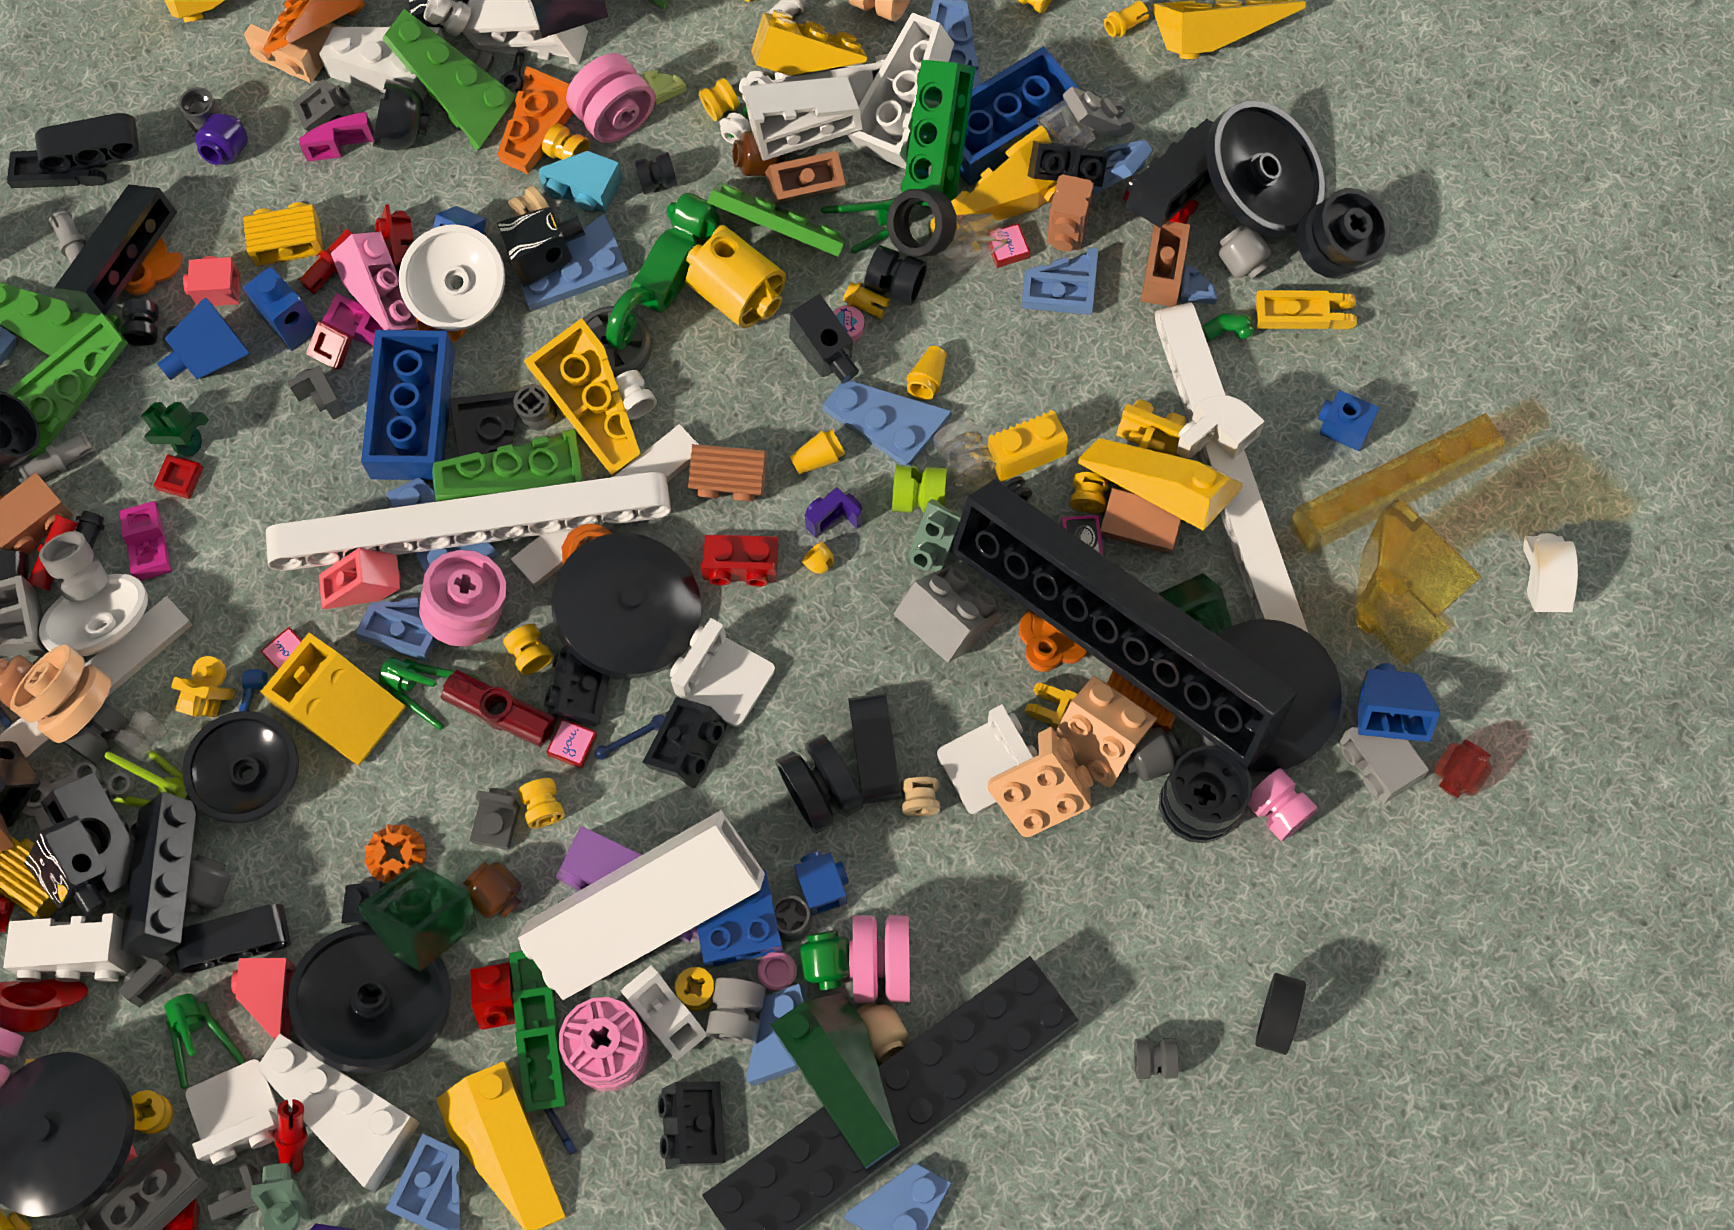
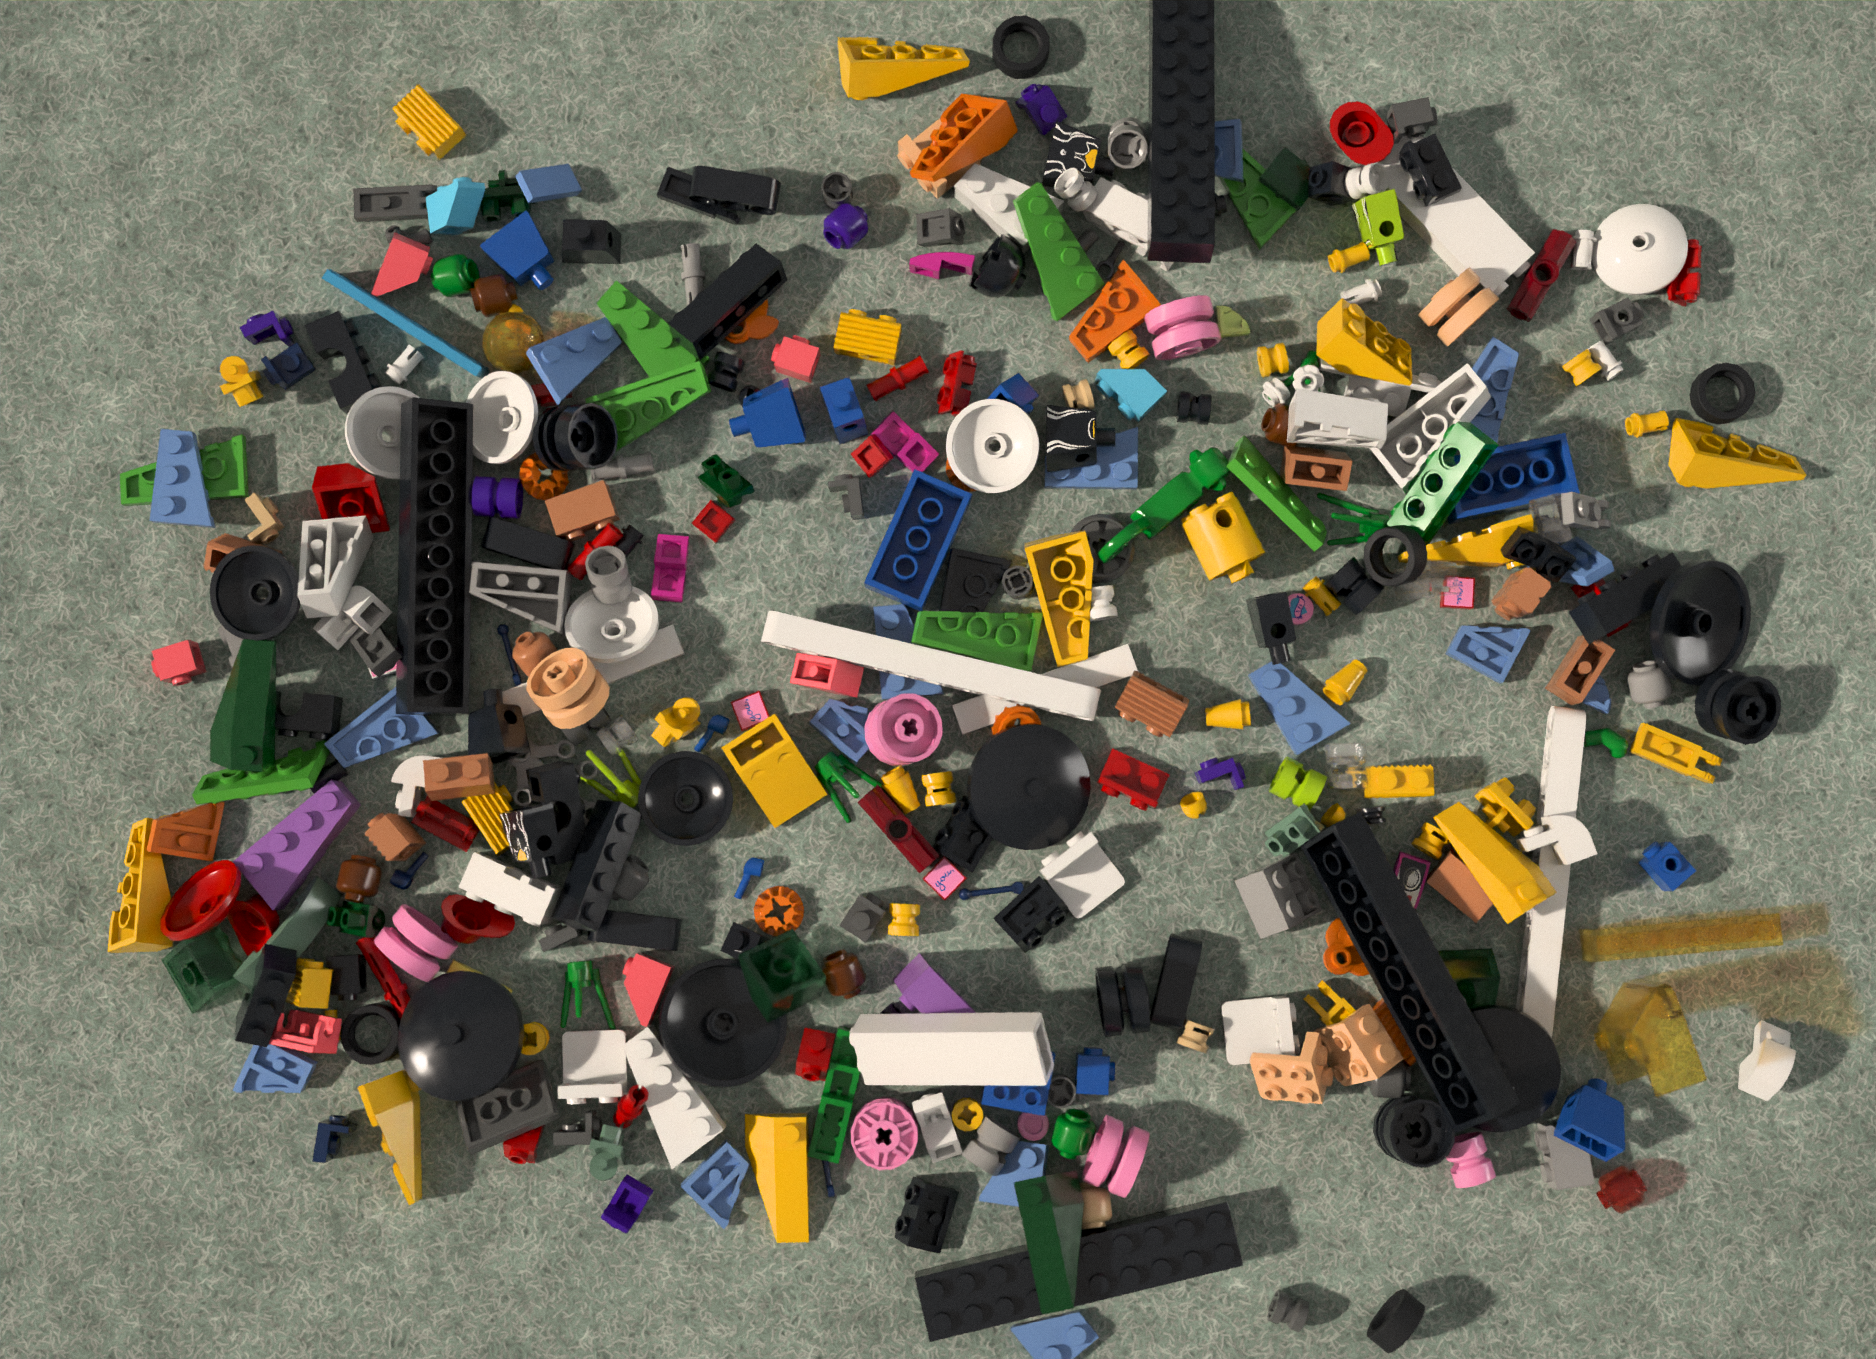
camera: 20 degrees right, 15 degrees up
(346, 817) = (752, 867): none -> blue hand
(373, 280) = (927, 417): bright pink slope -> none
(484, 665) = (901, 789): none -> yellow cone

